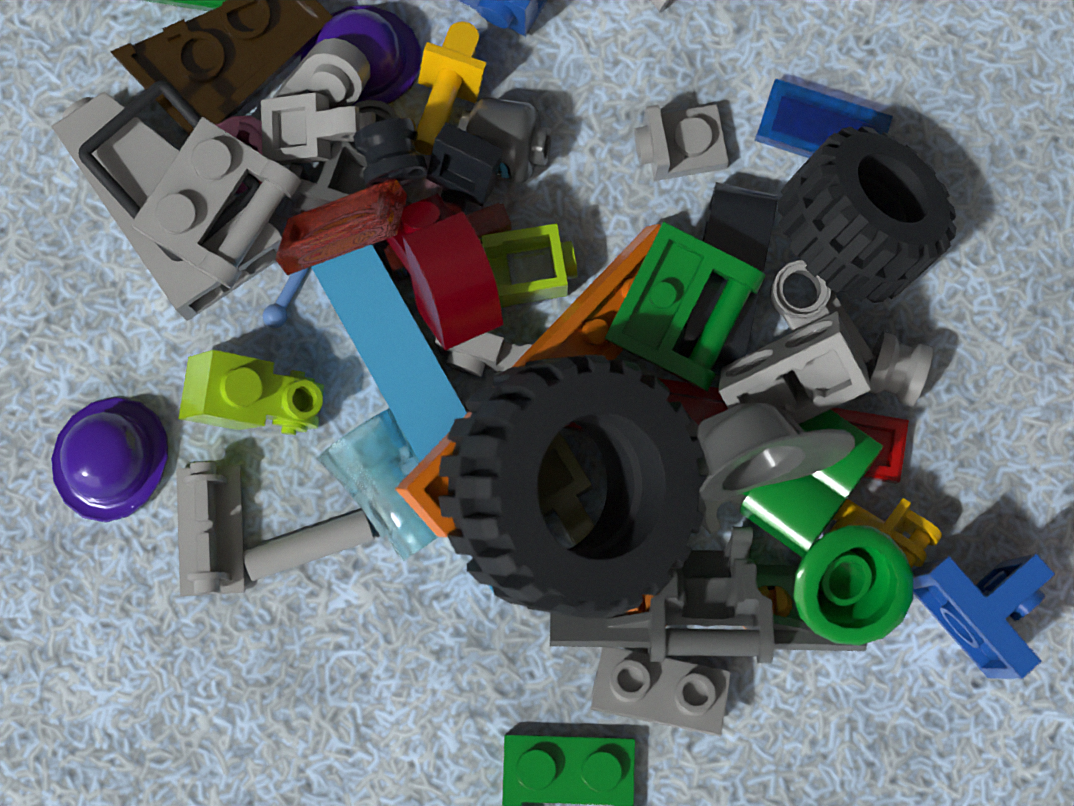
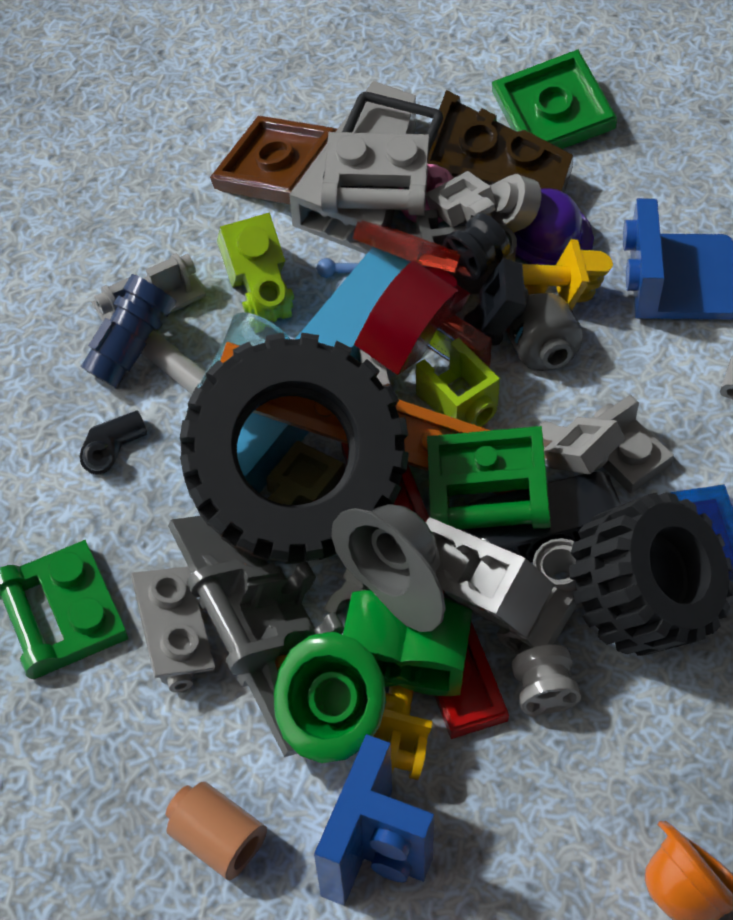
camera: 65 degrees right, 25 degrees down
(87, 293) = (270, 158): none -> reddish brown plate
(109, 459) = (168, 221): dark purple hat -> none
(266, 578) = (125, 334): none -> dark blue axle
(384, 661) = (106, 440): none -> black arm
(677, 193) = (581, 445): none -> light grey plate
(893, 746) = (214, 828): none -> nougat brick

